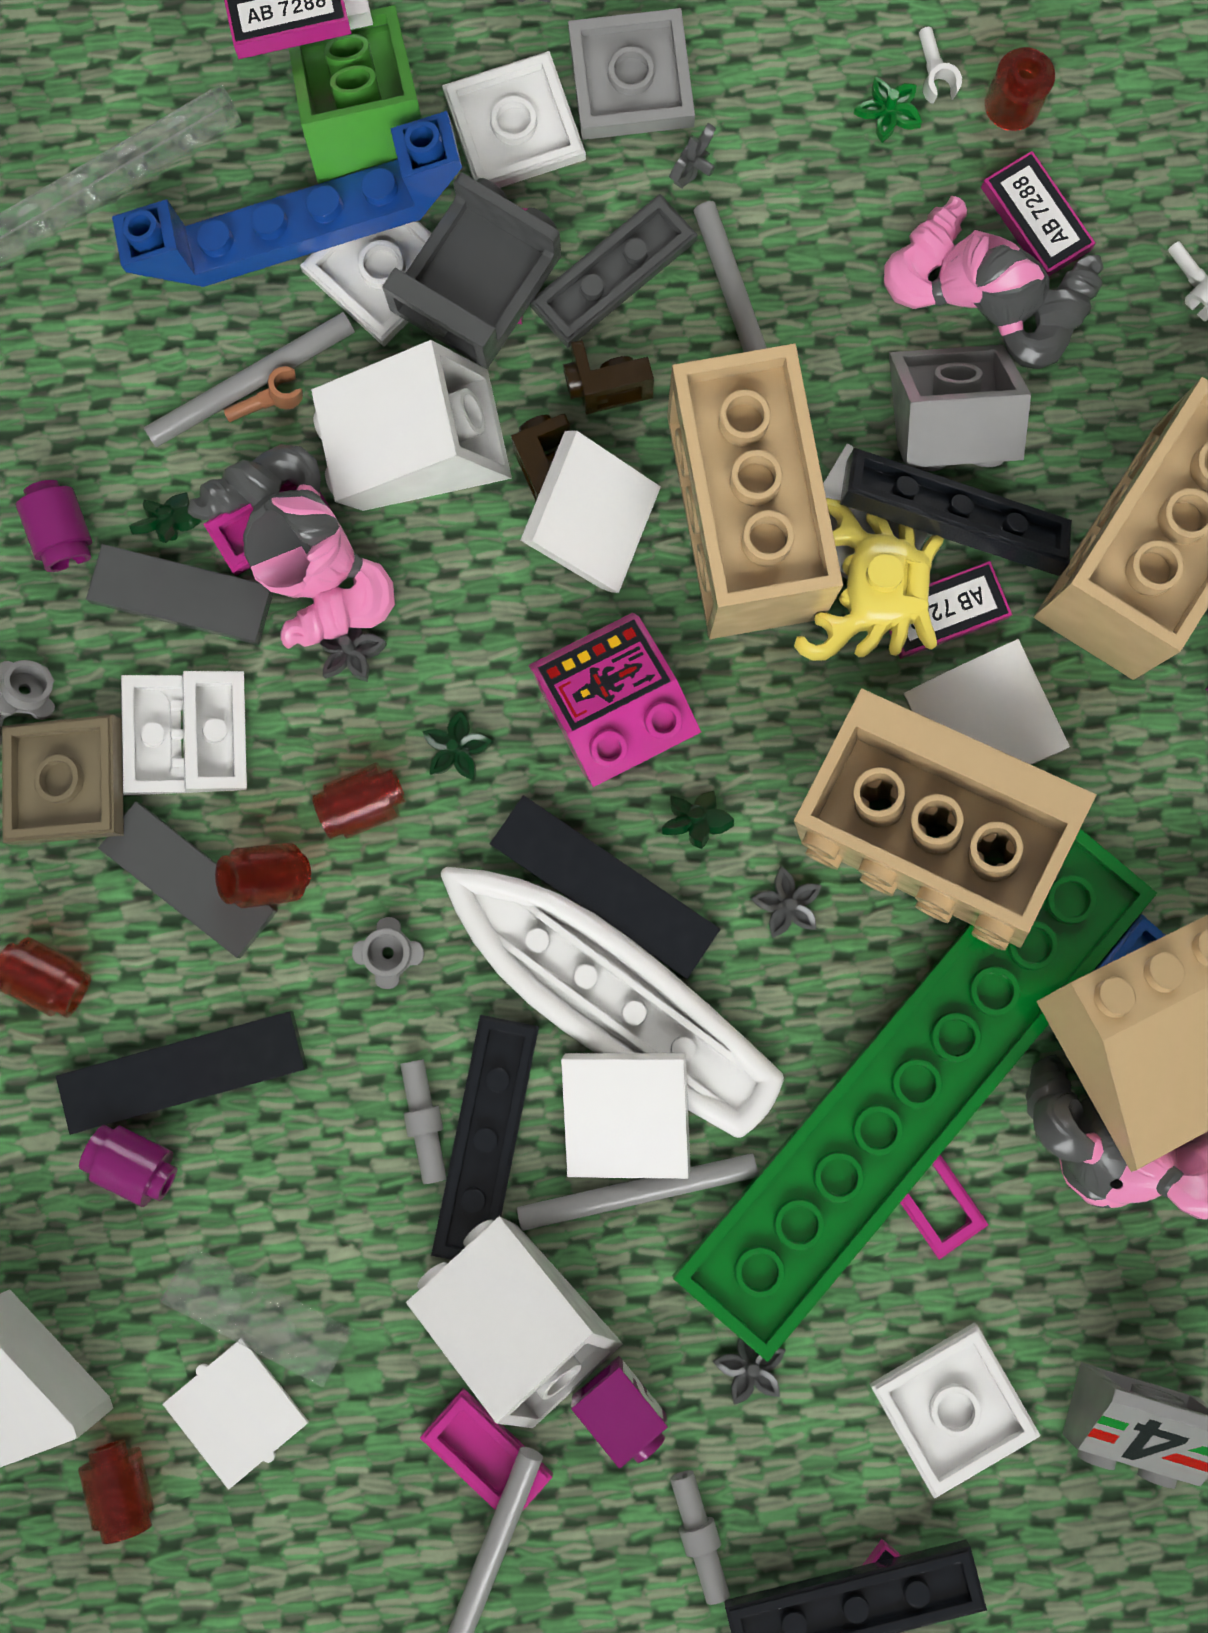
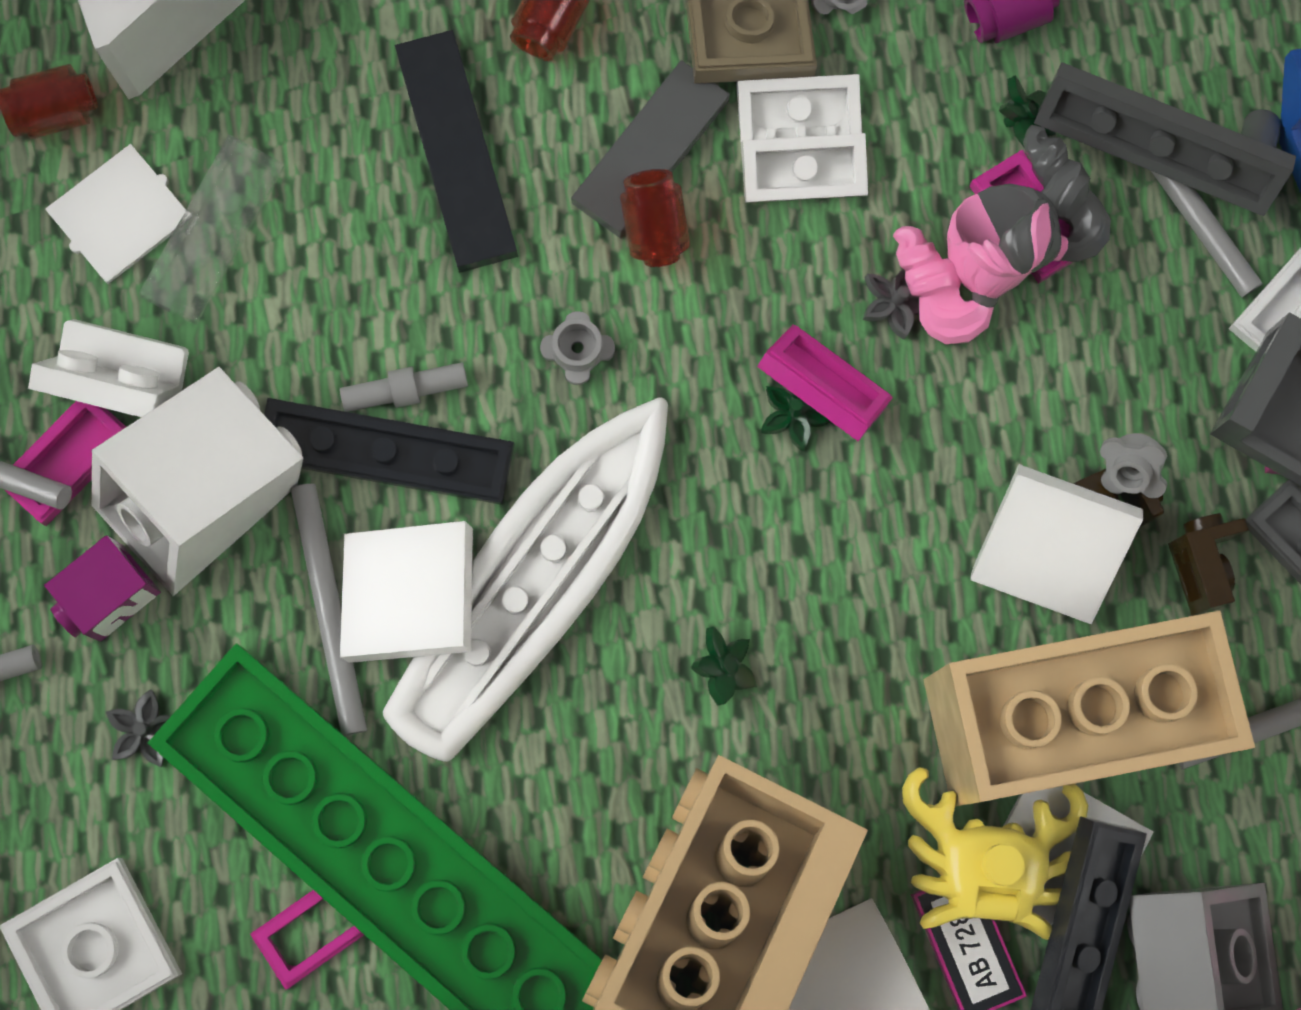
camera: 85 degrees right, 5 degrees down
(128, 1165) = (363, 100): magenta brick -> none
(179, 594) = (946, 130): dark grey tile -> none
(205, 384) = (1169, 141): none -> dark grey piece
(269, 396) = (1163, 211): nougat hand -> none
(359, 801) = (734, 312): clear red brick -> none
(404, 1411) = (111, 369): none -> white bracket
(409, 429) = (1138, 351): white slope -> none
(429, 717) = (825, 382): none -> dark pink tile
(525, 435) = (1137, 452): none -> light grey plate
(605, 886) = (649, 570): black tile -> none
(614, 699) = (850, 571): dark pink piece -> none
(788, 903) = (634, 768): dark grey plant -> none

